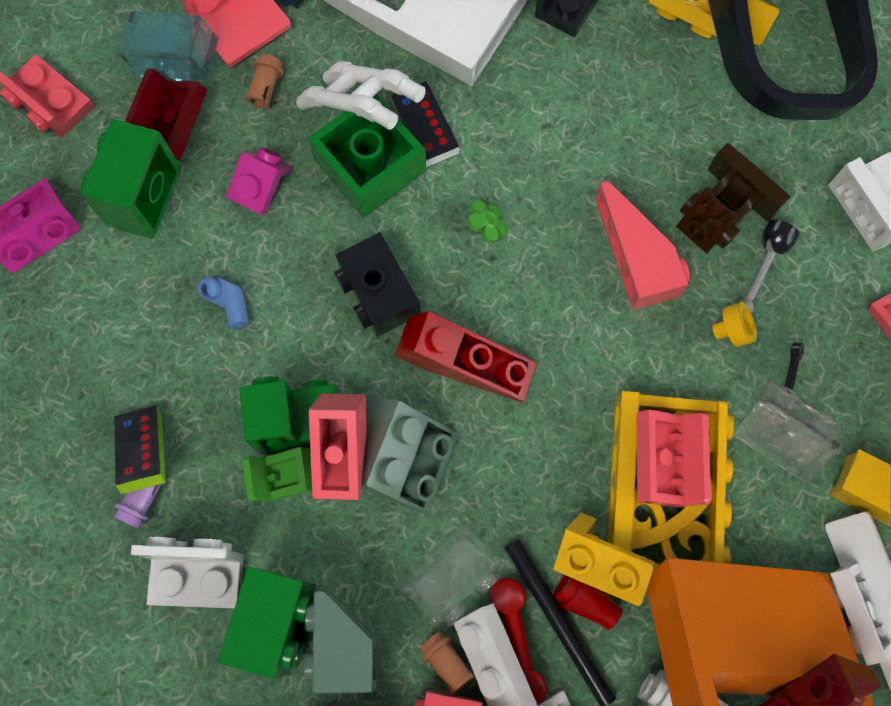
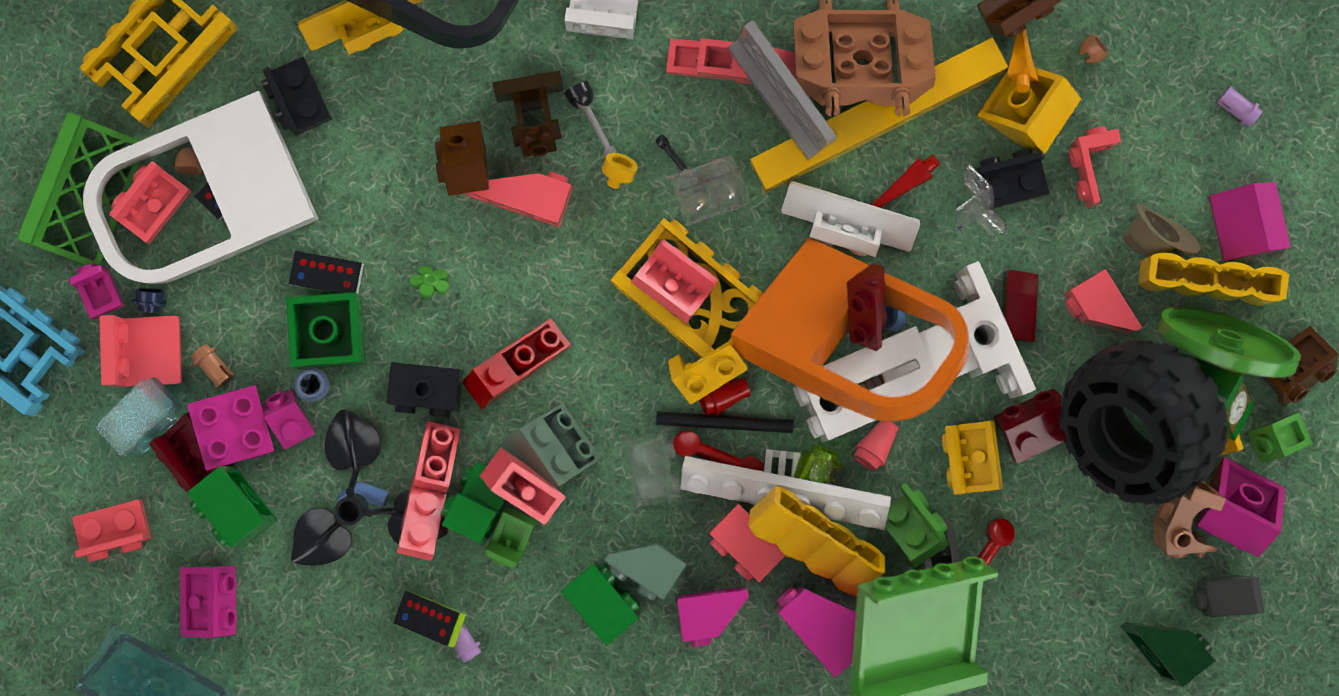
camera: 60 degrees left, 10 degrees up
(164, 283) = (318, 534): none -> black plant
(194, 575) = (538, 635): white bracket -> none
(212, 130) = (230, 428): none -> dark pink hinge
(276, 355) = (428, 491): none -> coral slope
(305, 175) = (304, 383): none -> sand blue cone
(344, 76) = (290, 315): white piece -> none
(446, 662) = (700, 509): nougat pin -> none
(631, 164) = (462, 158): none -> reddish brown brick

